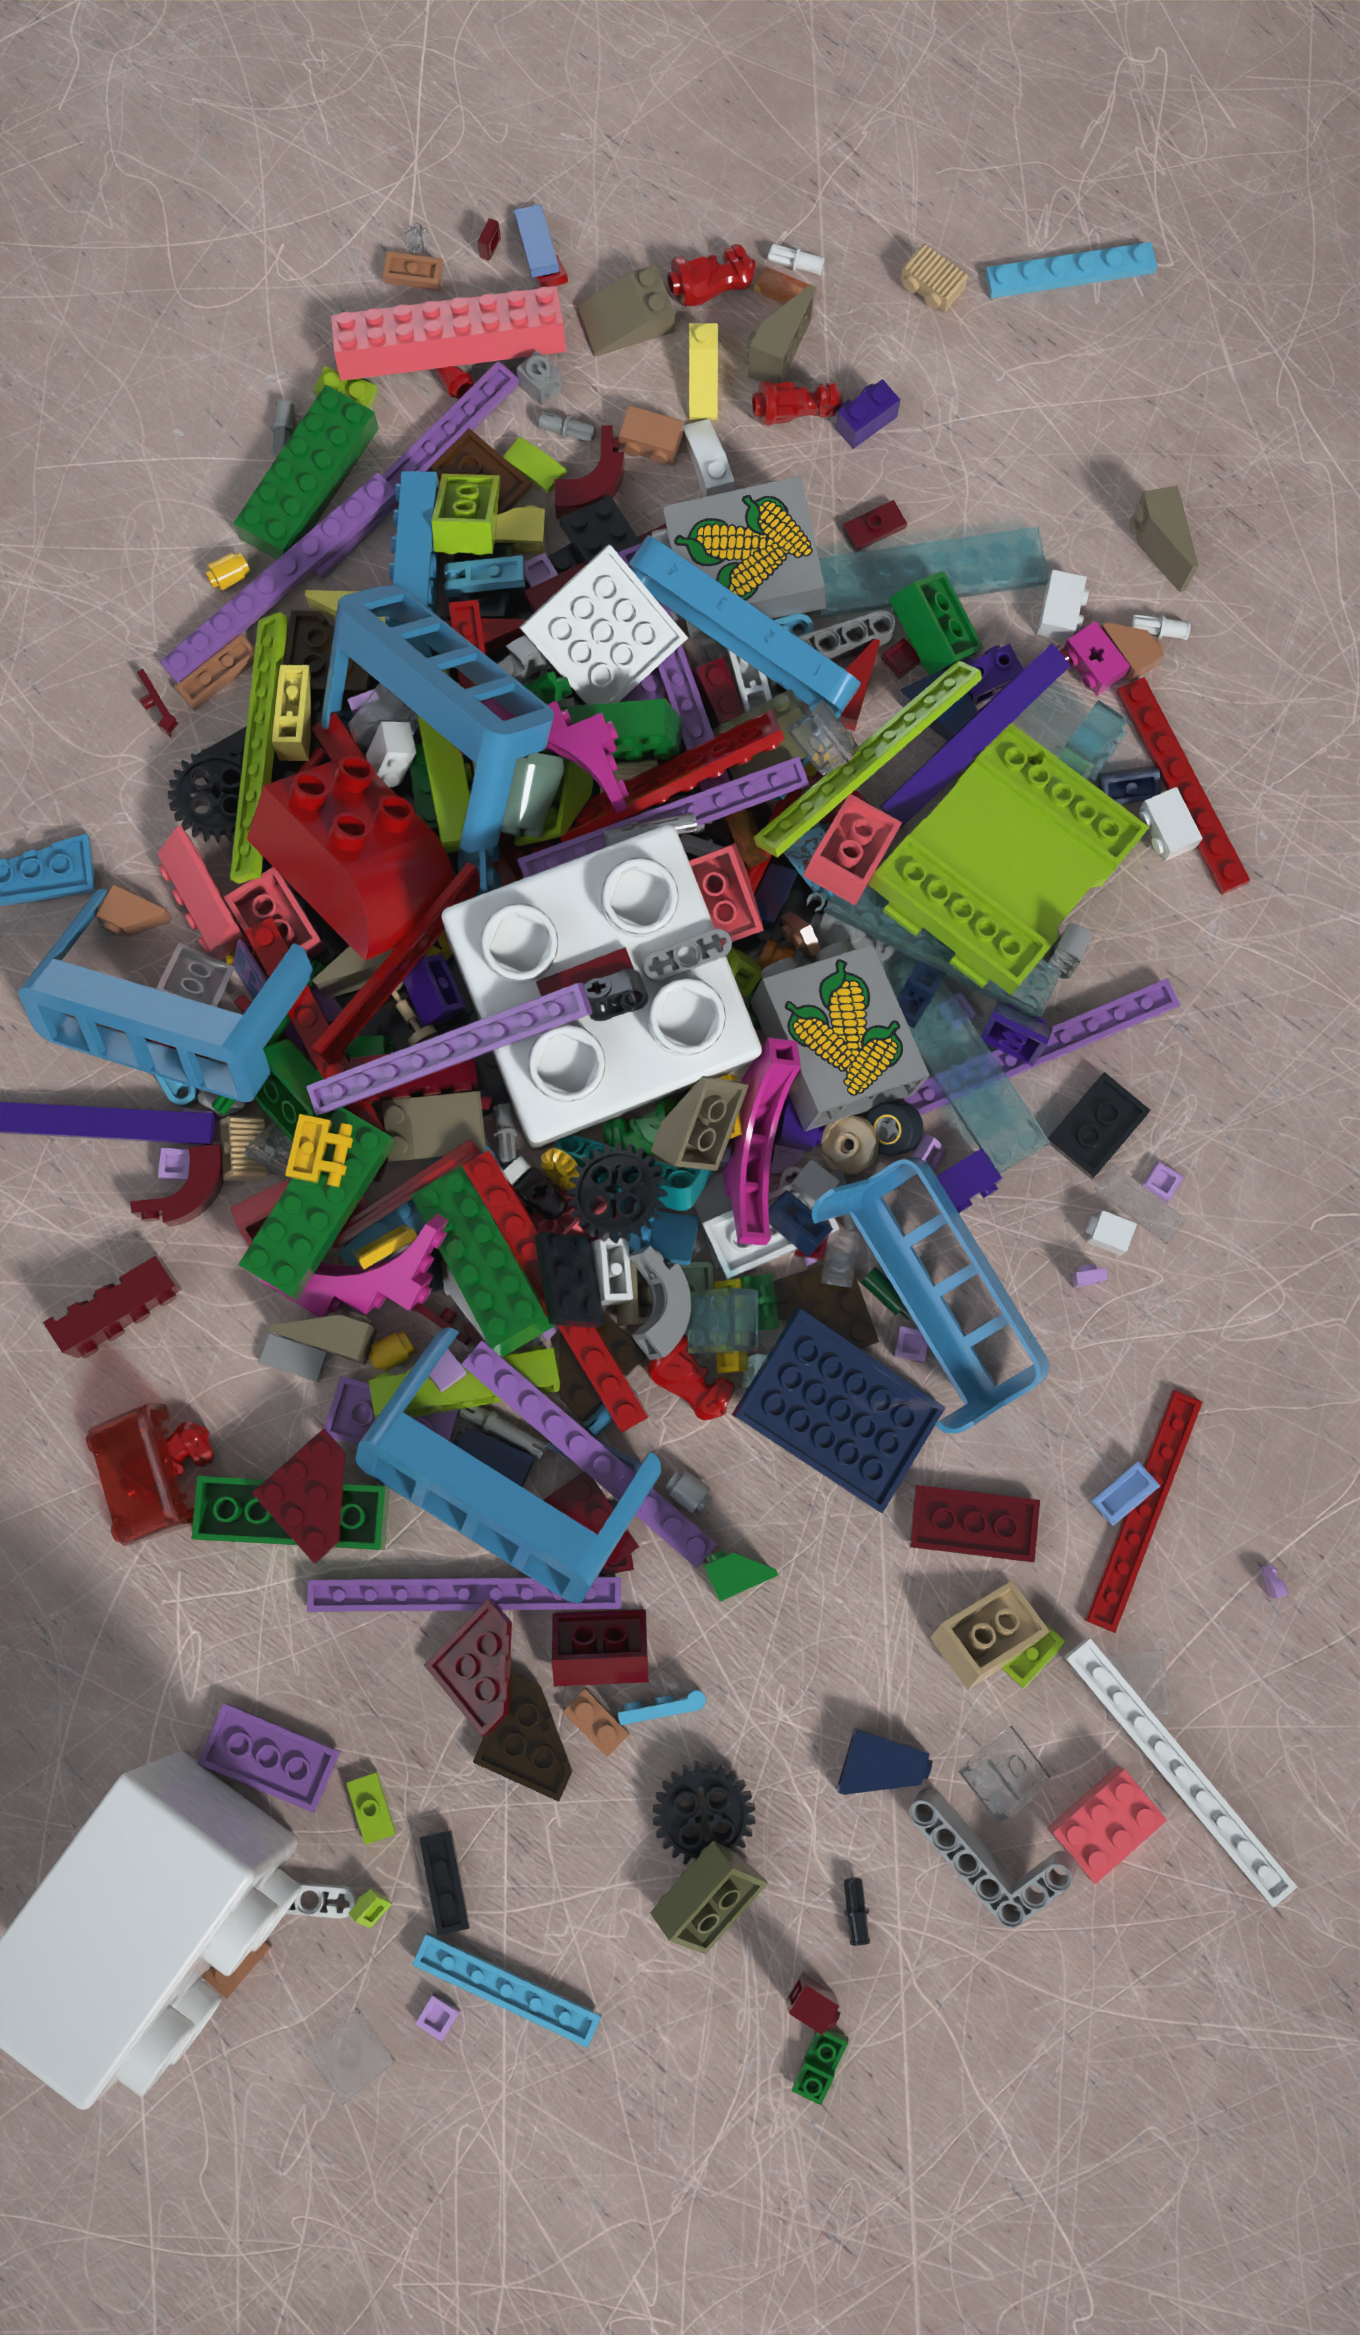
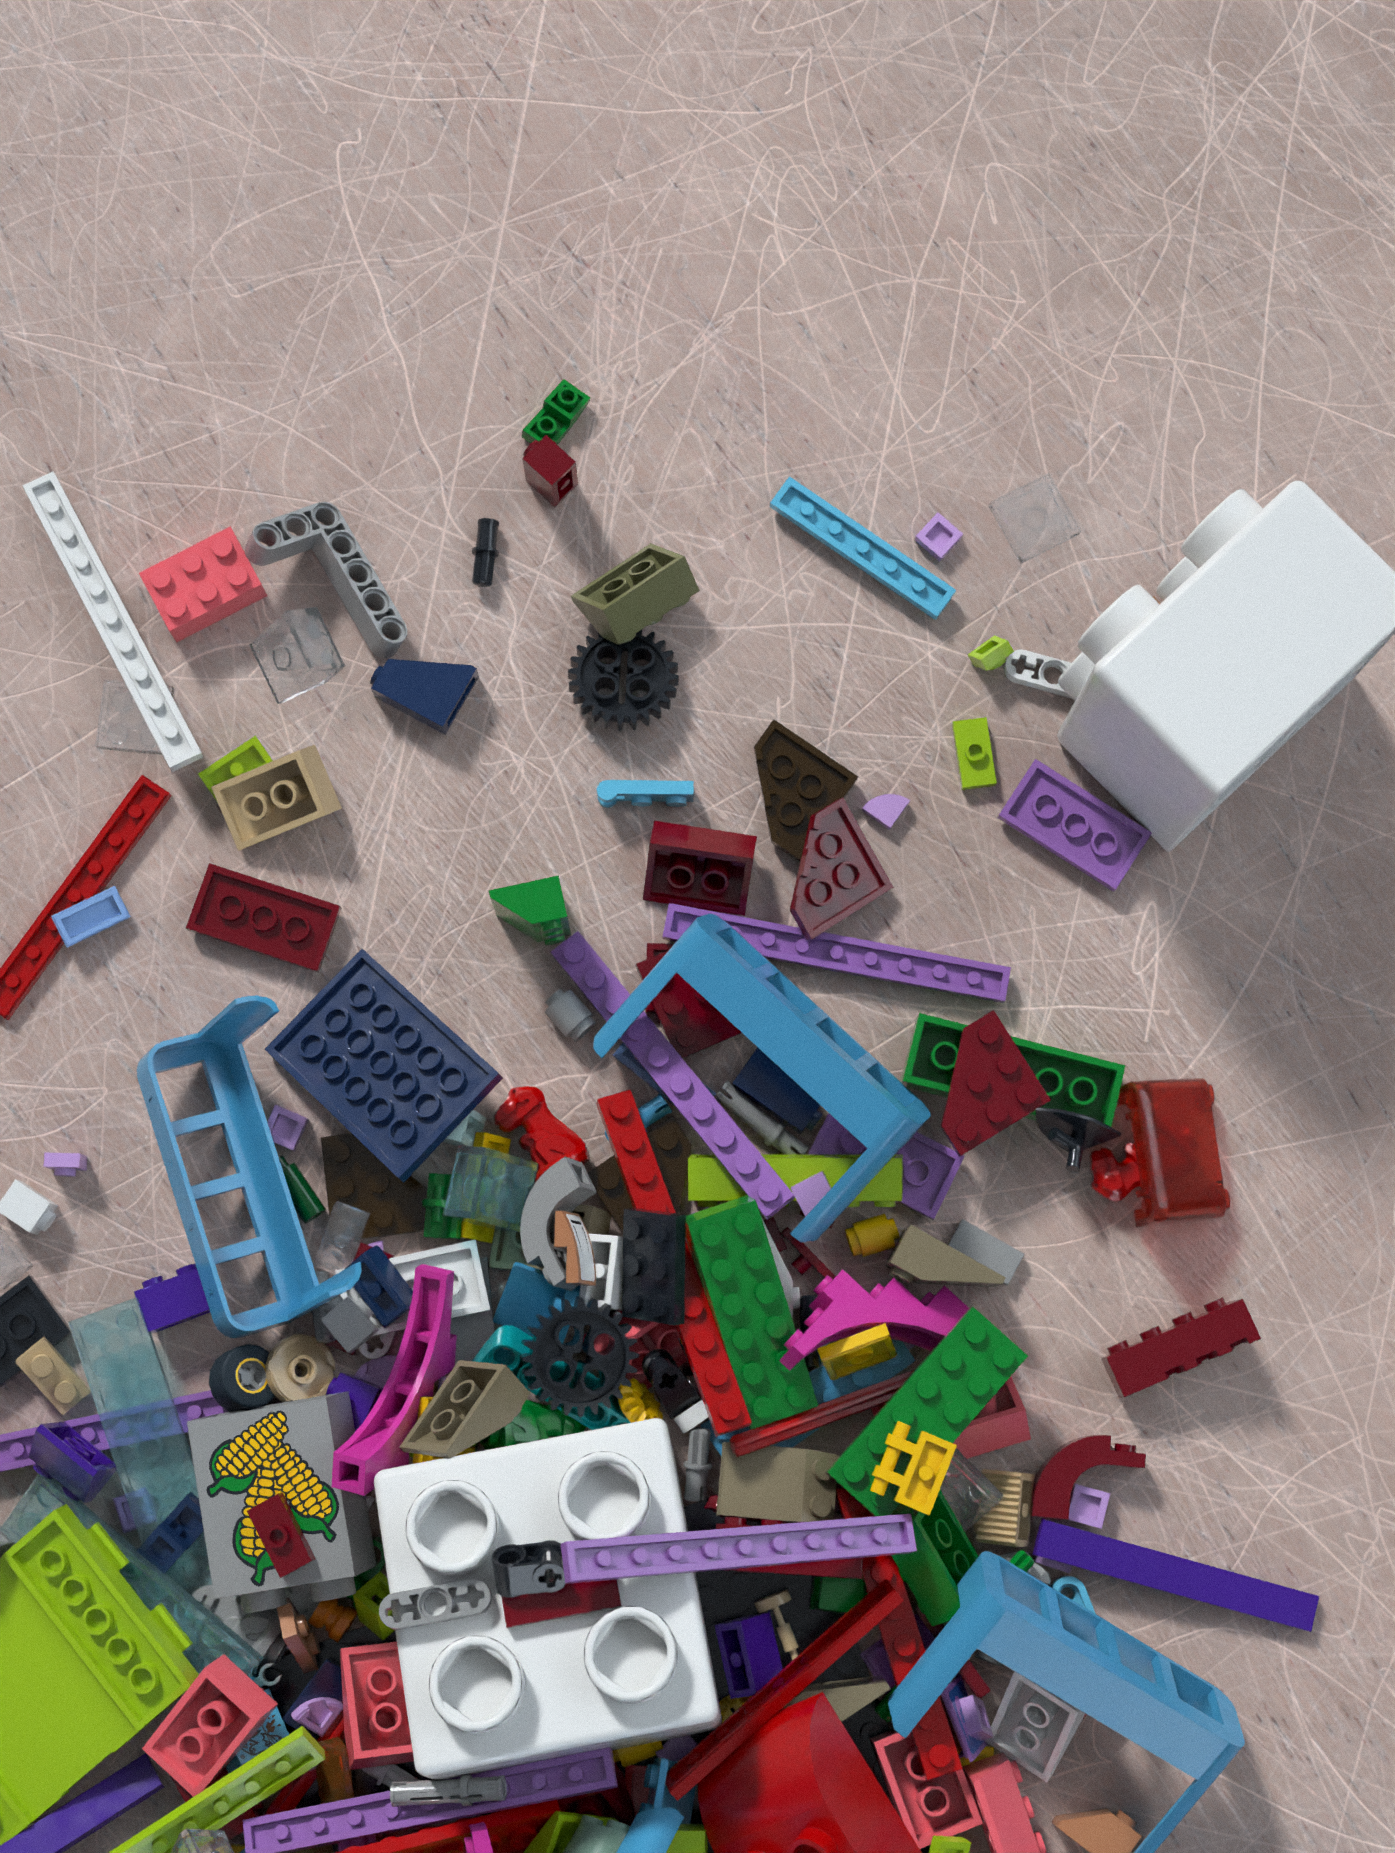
camera: 170 degrees left, 0 degrees up
(230, 1469) = (1073, 1133): none -> black shield
(242, 979) = (976, 1717): none -> lavender tile
(442, 1738) = (886, 808): none -> lavender tile
(444, 1882) = (908, 664): black plate -> none
(596, 1722) = (719, 793): nougat plate -> none
(642, 1291) = (573, 1236): none -> nougat slope
(771, 881) = (318, 1714): none -> lavender tile
(829, 999) = (281, 1534): none -> dark red plate
(930, 1150) = (210, 1343): lavender plate -> none
(1052, 1101) = (53, 1375): none -> tan plate

